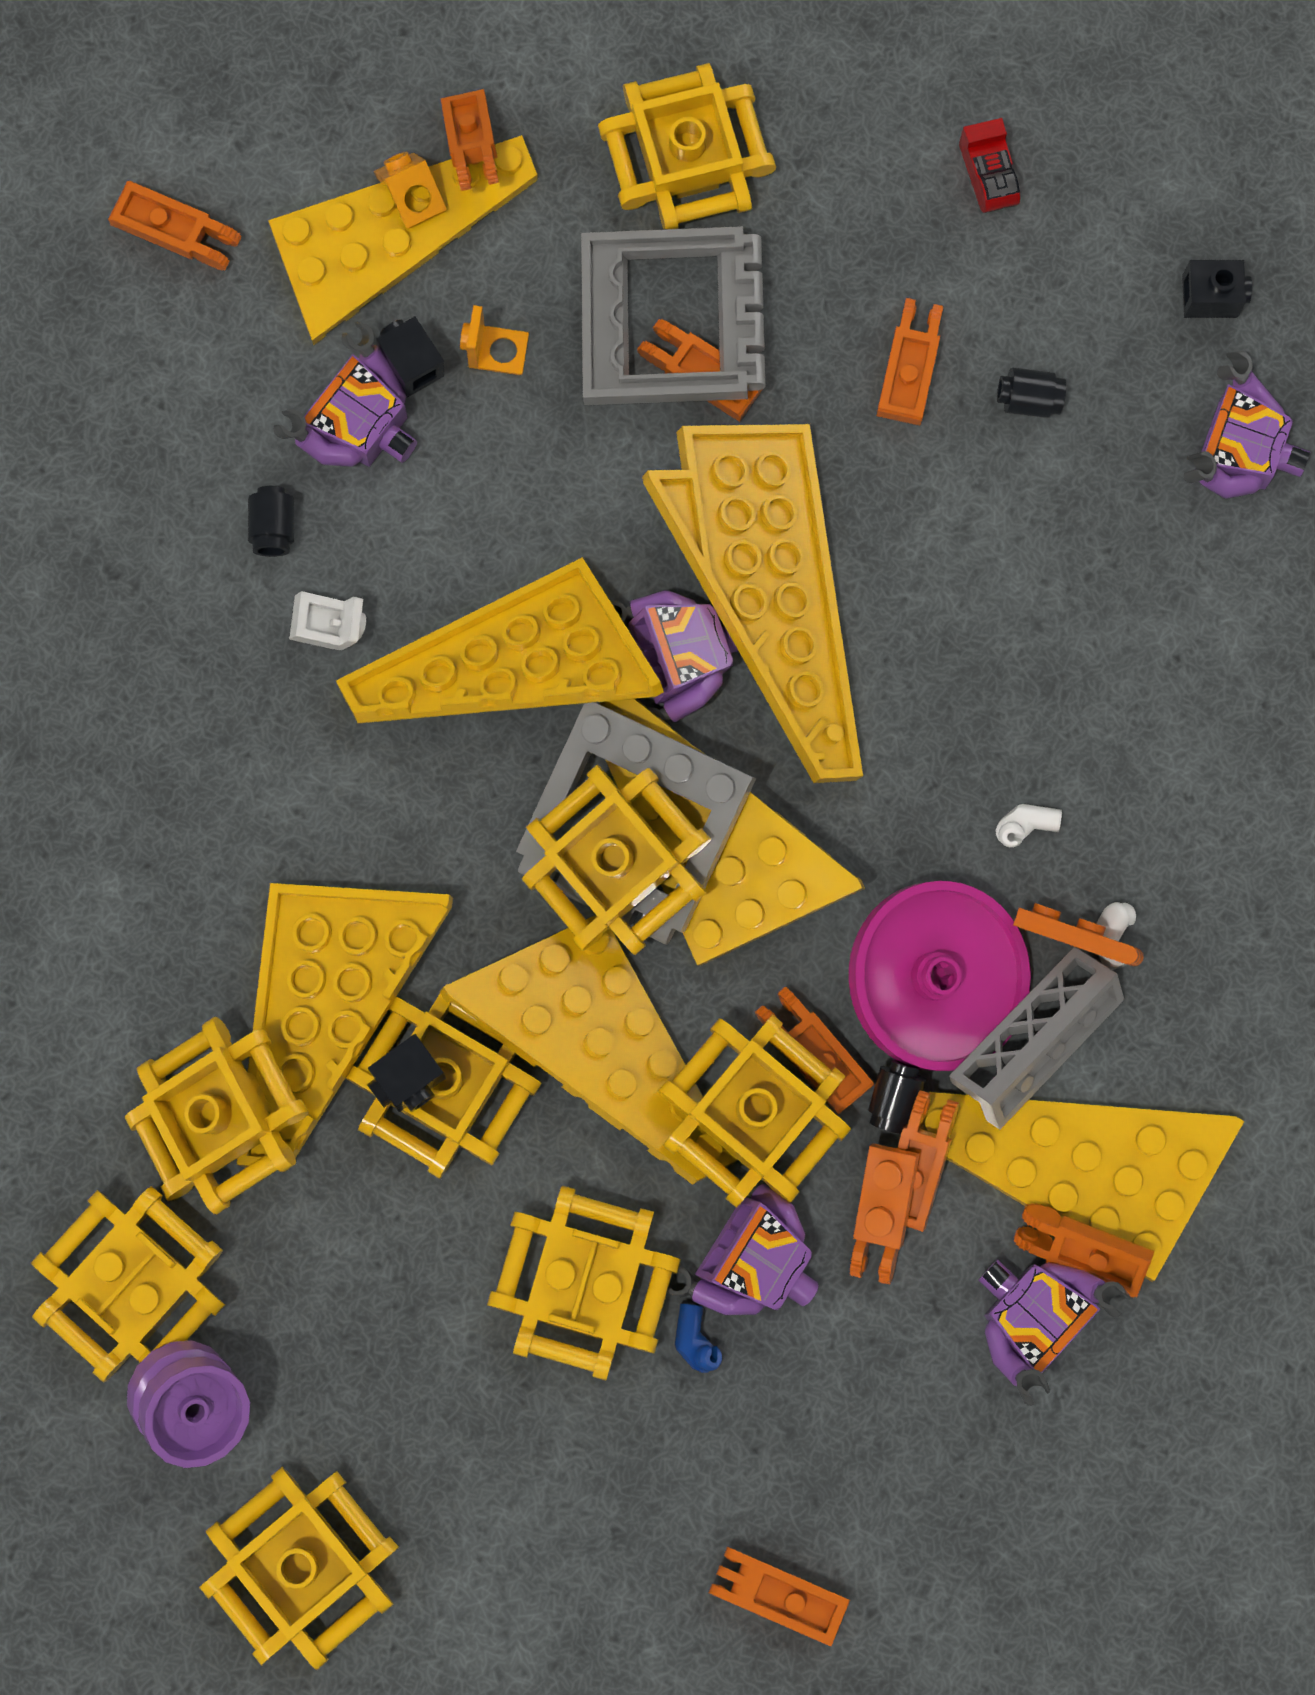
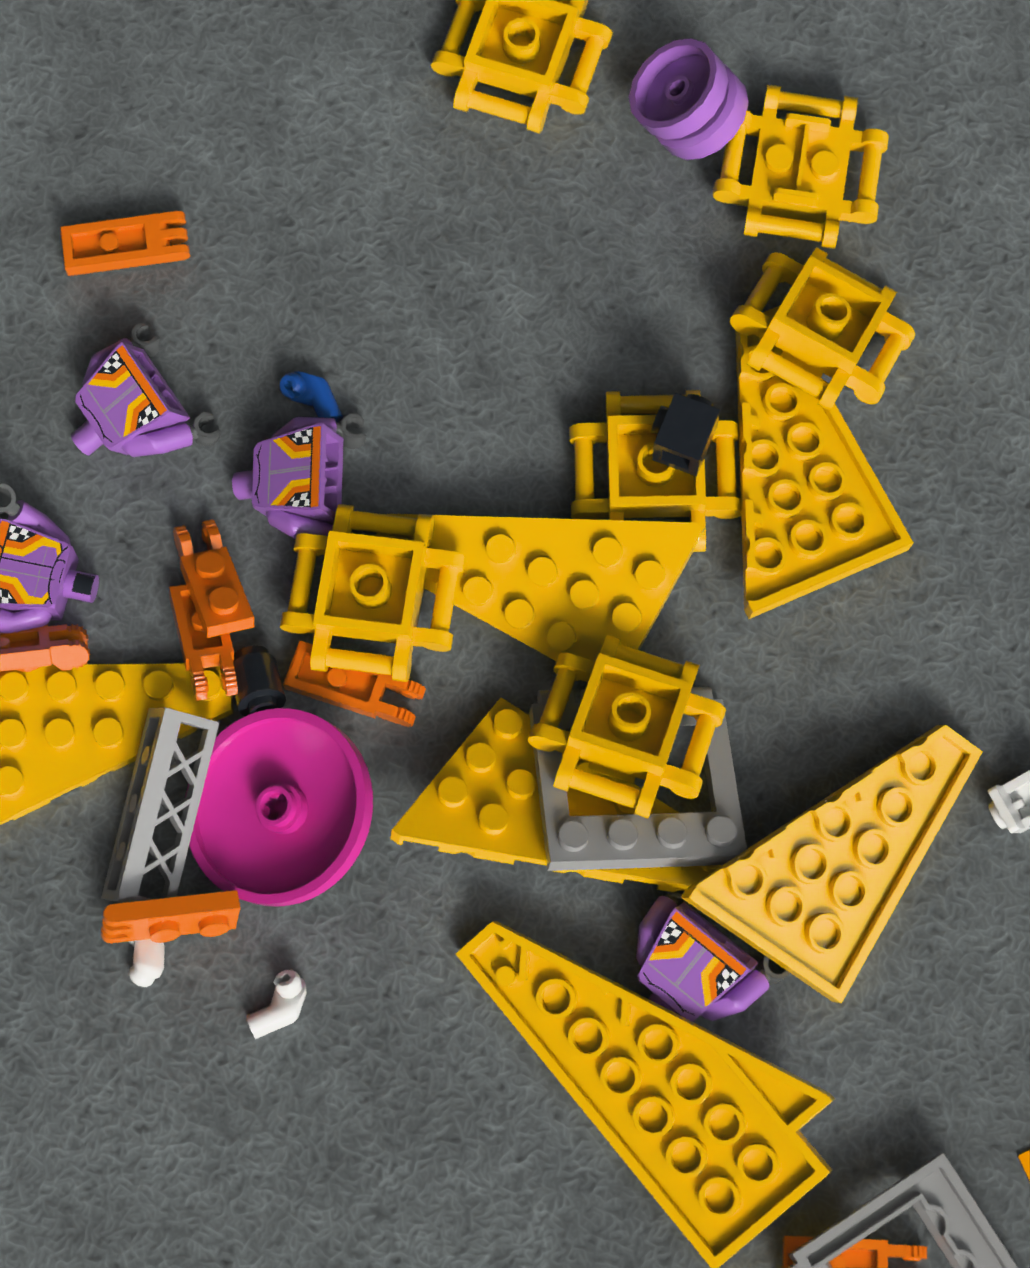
camera: 155 degrees right, 5 degrees down
(584, 1283) = (432, 379): yellow brick -> none
(863, 1423) = (132, 404): none -> medium lavender torso

